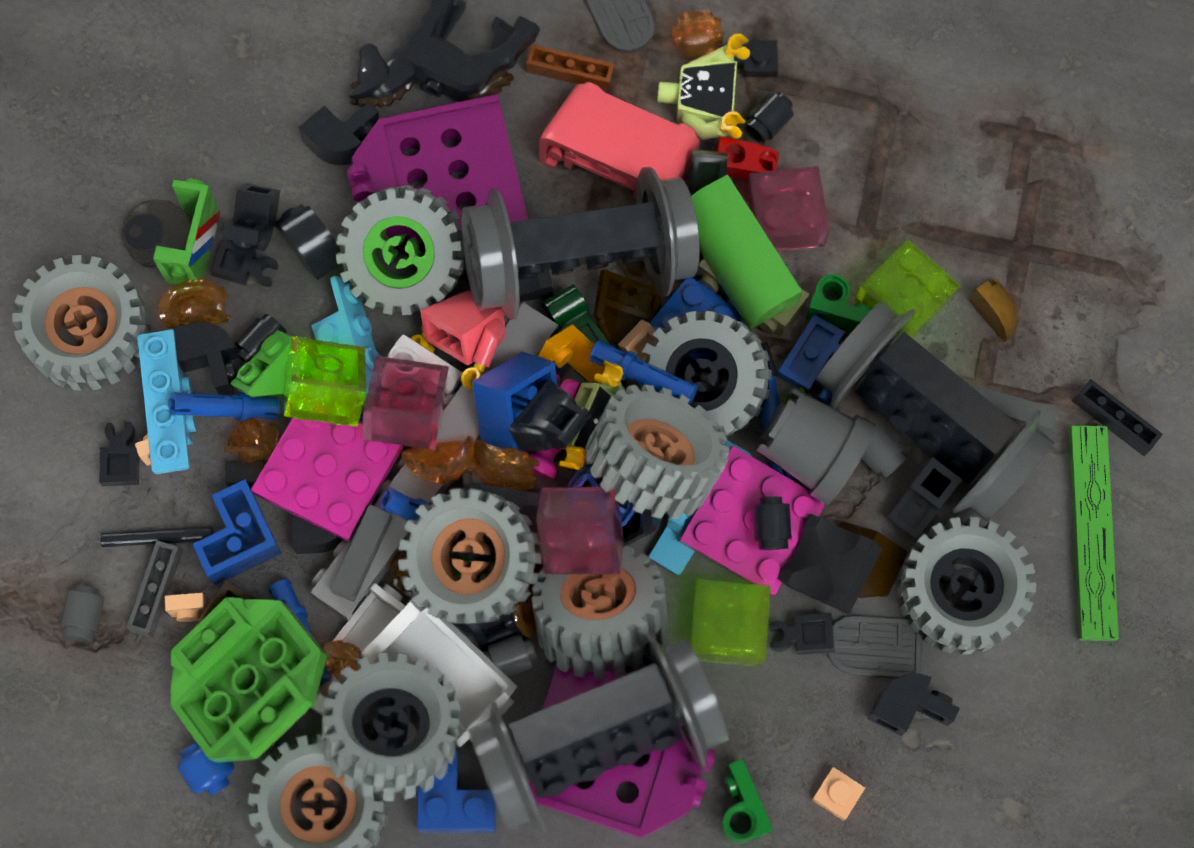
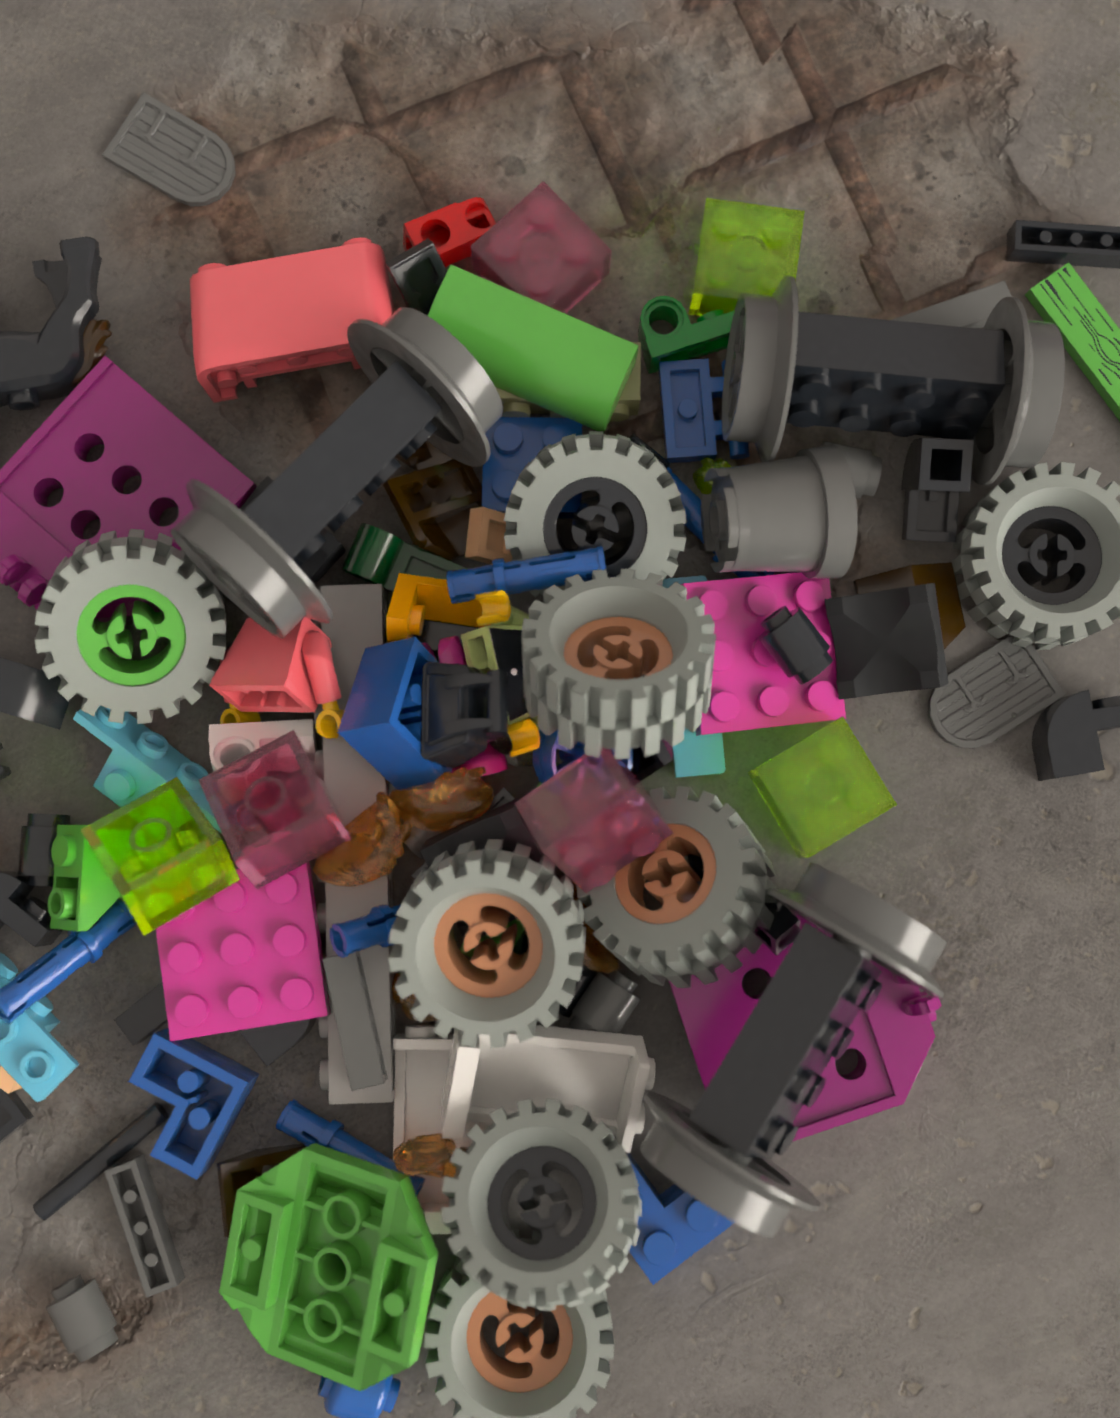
camera: 35 degrees left, 10 degrees up
(186, 606) = (197, 1221): light nougat plate -> none
(252, 440) = (127, 974): clear orange hat -> none
(569, 67) = (164, 263): dark orange piece -> none
(697, 32) = (284, 117): clear orange head -> none
(708, 91) = (348, 180): torso -> none
(741, 785) = (986, 976): green plate -> none
(762, 59) = (372, 102): black plate -> none
(768, 117) = (440, 162): black brick -> none
(810, 634) = (915, 733): black plate -> none
(838, 793) = (1069, 888): light nougat plate -> none
(996, 307) = (853, 211): pearl gold brick -> none

